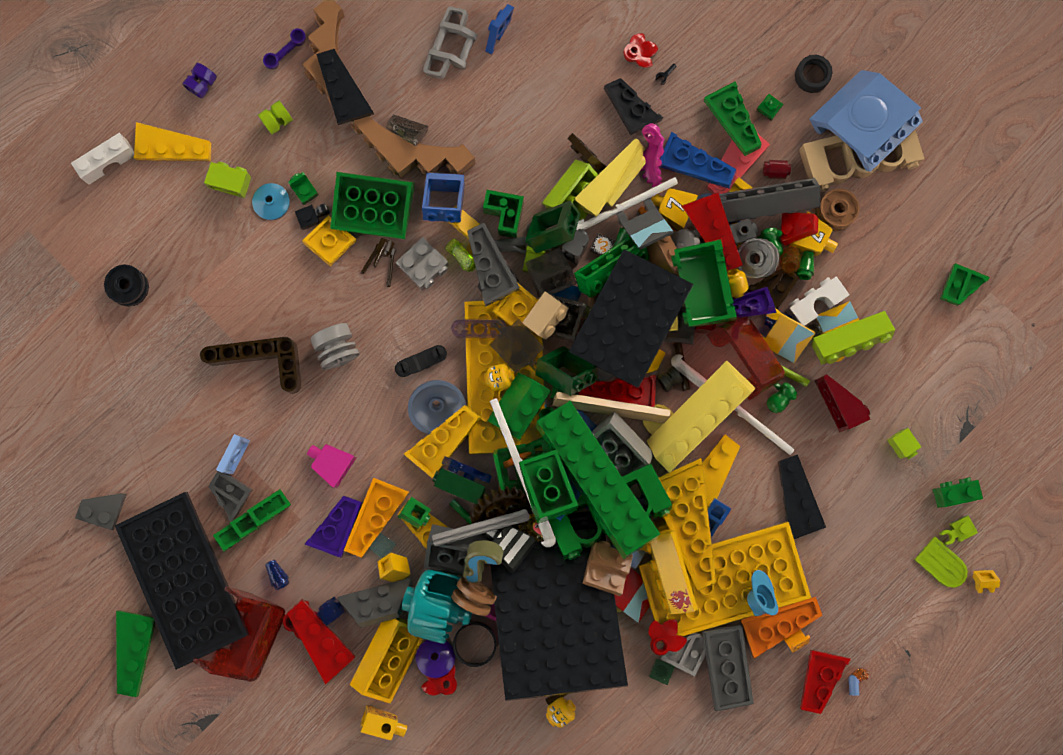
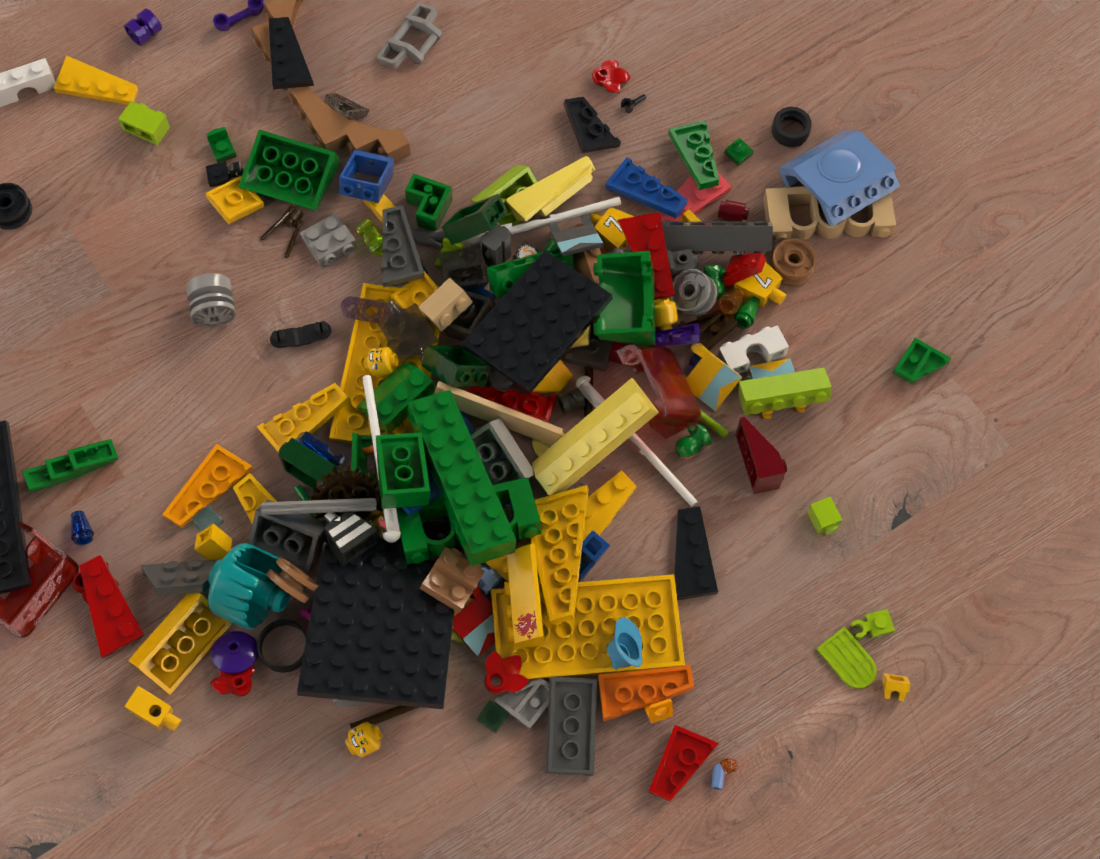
camera: 10 degrees right, 15 degrees down
(230, 493) = (54, 432): dark grey wing -> none
(233, 454) = (69, 389): light blue tile -> none
(258, 354) = (127, 297): dark brown beam -> none
(275, 117) = (203, 74): lime wheel -> none
(275, 208) = (186, 160): dark azure dish -> none
(330, 611) = (128, 574): clear blue brick -> none
(331, 463) = (175, 421): dark pink torso -> none
(336, 528) = (156, 495): dark purple wing -> none
(422, 511) = (250, 479): green brick -> none
(427, 415) = (289, 375): sand blue dish -> none
(476, 555) = (304, 536): olive animal -> none
(498, 27) = (465, 28): blue wing -> none
(587, 155) = (528, 159): dark brown wing -> none
(652, 154) = (607, 160): dark pink plant -> none
(954, 494) = (877, 580): green brick -> none

